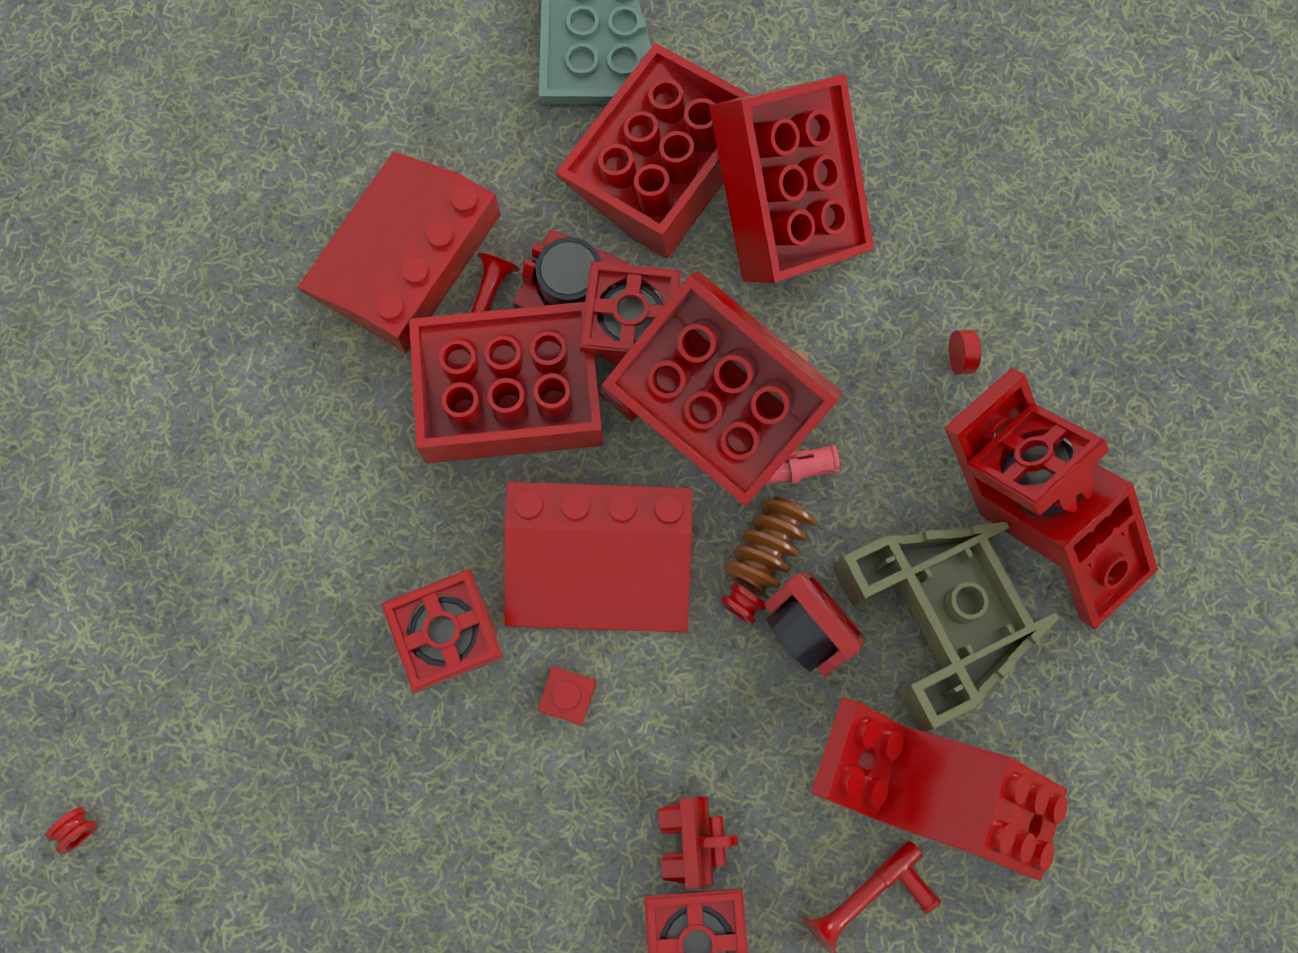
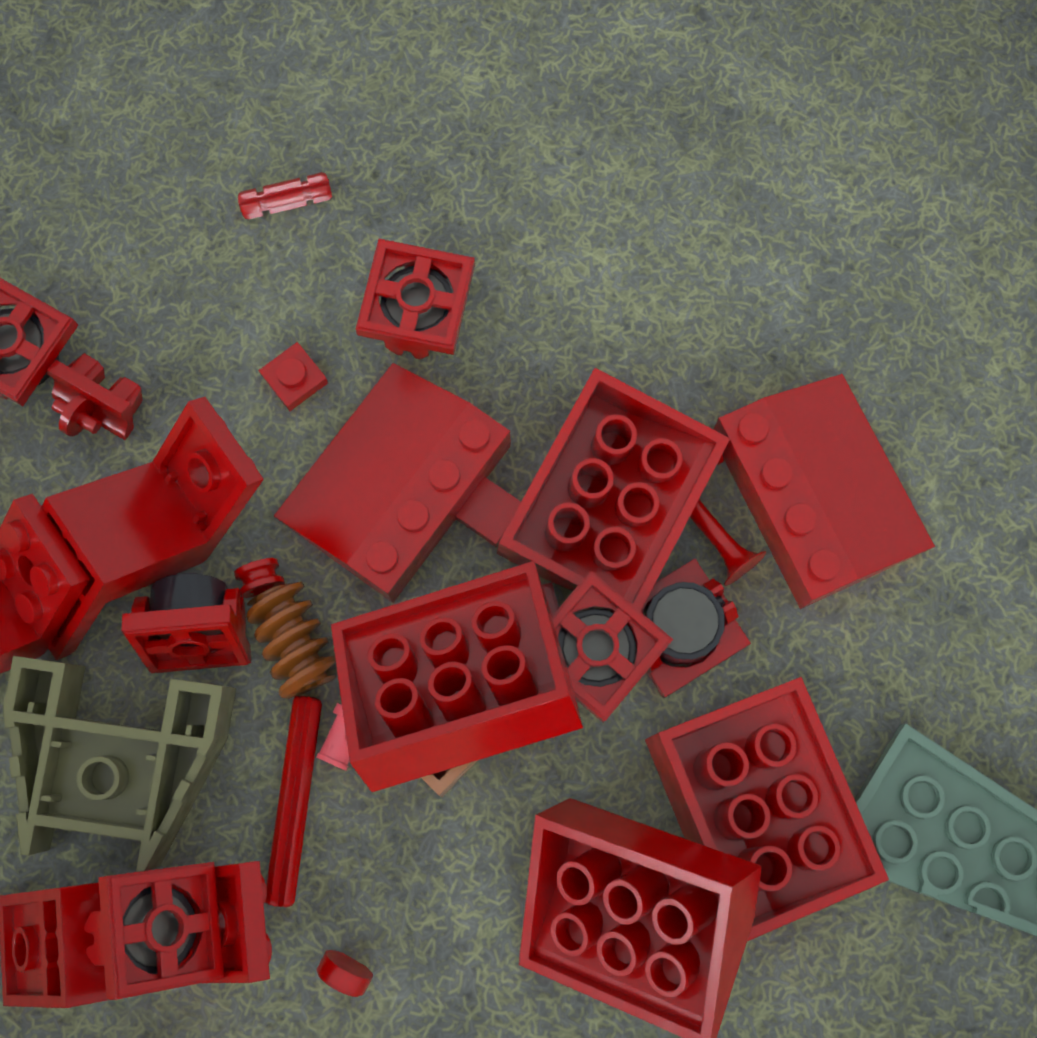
camera: 125 degrees right, 0 degrees up
(416, 816) = (284, 195): none -> axle
(575, 466) = (488, 511): none -> red tile
(750, 701) = (152, 516): none -> red bracket
(875, 470) = (293, 801): none -> red axle

